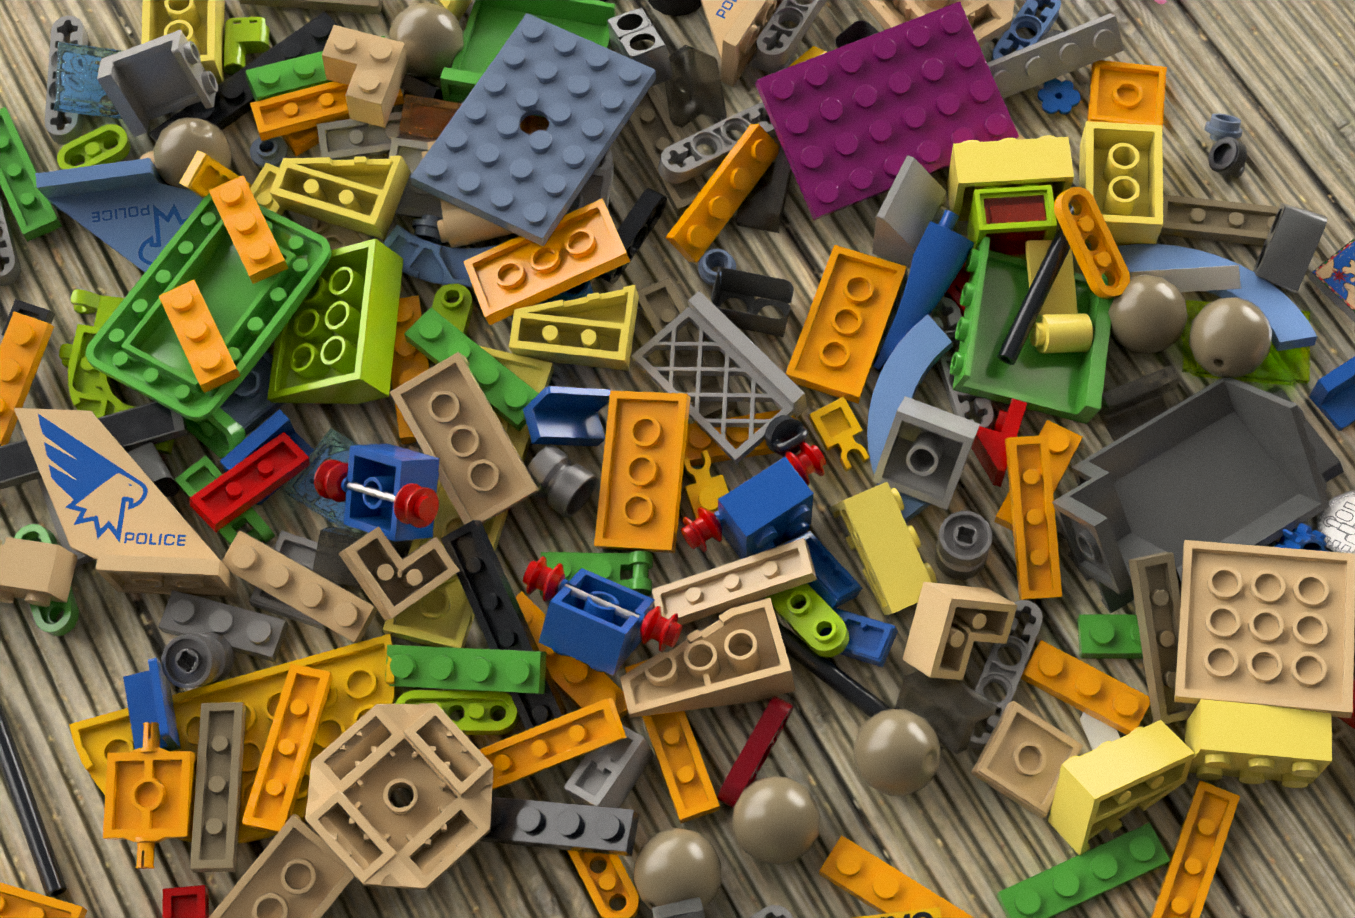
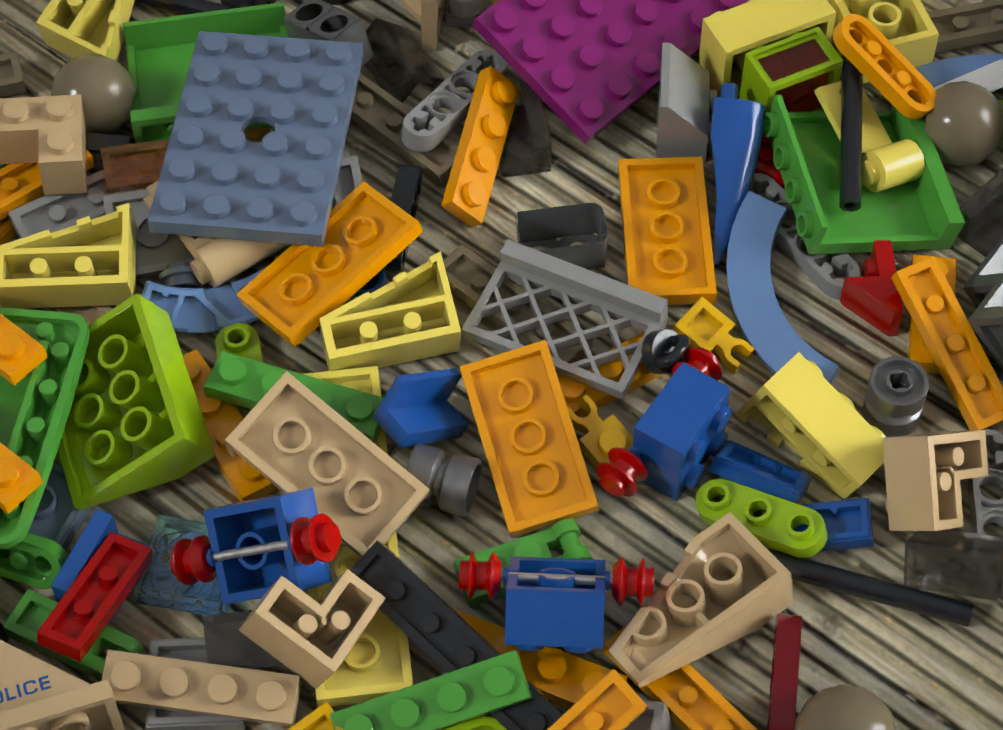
camera: 25 degrees left, 10 degrees down
(714, 258) = (502, 212): sand blue plate -> none
(737, 582) = (686, 510): tan plate -> none
(897, 752) = (936, 620): dark tan piece -> none
(925, 452) = (817, 317): light grey slope -> none

